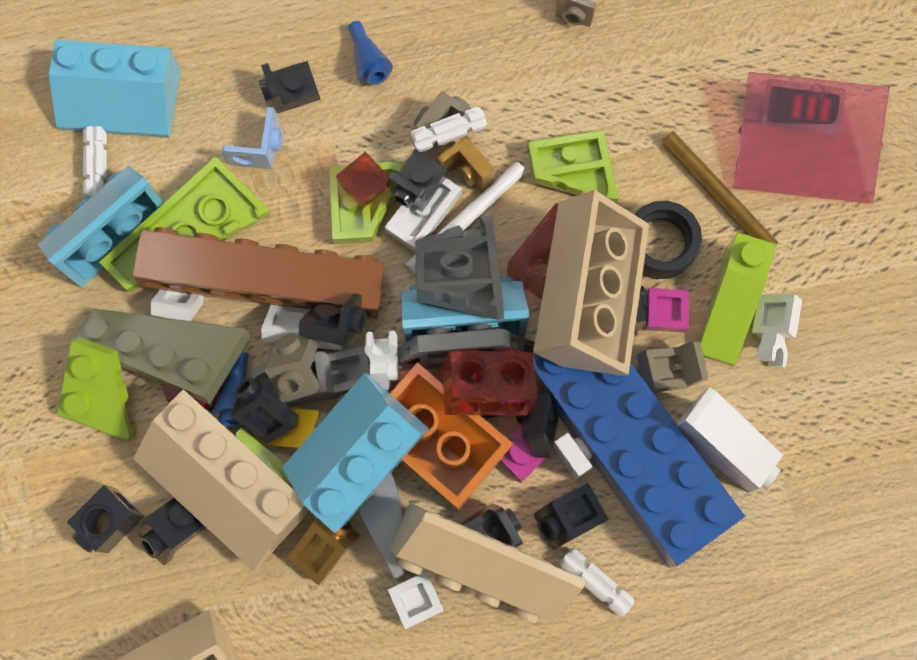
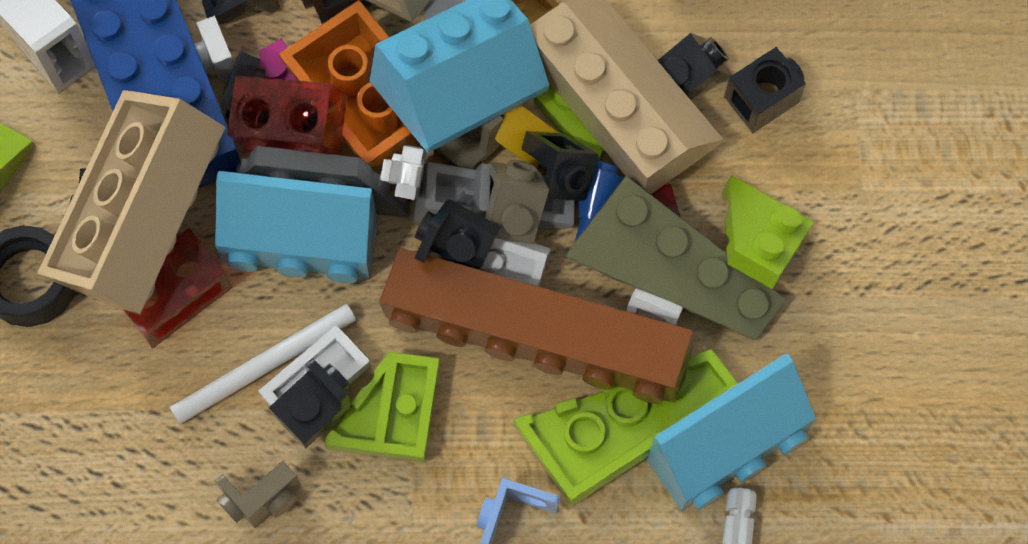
camera: 170 degrees left, 5 degrees down
(363, 180) = (380, 415): clear red plate -> none
(448, 129) = (253, 458): white axle -> none
(460, 270) = (285, 265): dark grey wing -> none
(472, 164) = (237, 417): pearl gold bracket -> none
(574, 164) = (102, 398): lime wing -> none
(667, 310) = (47, 190): dark pink plate -> none
(673, 367) = (68, 122): dark tan bracket -> none

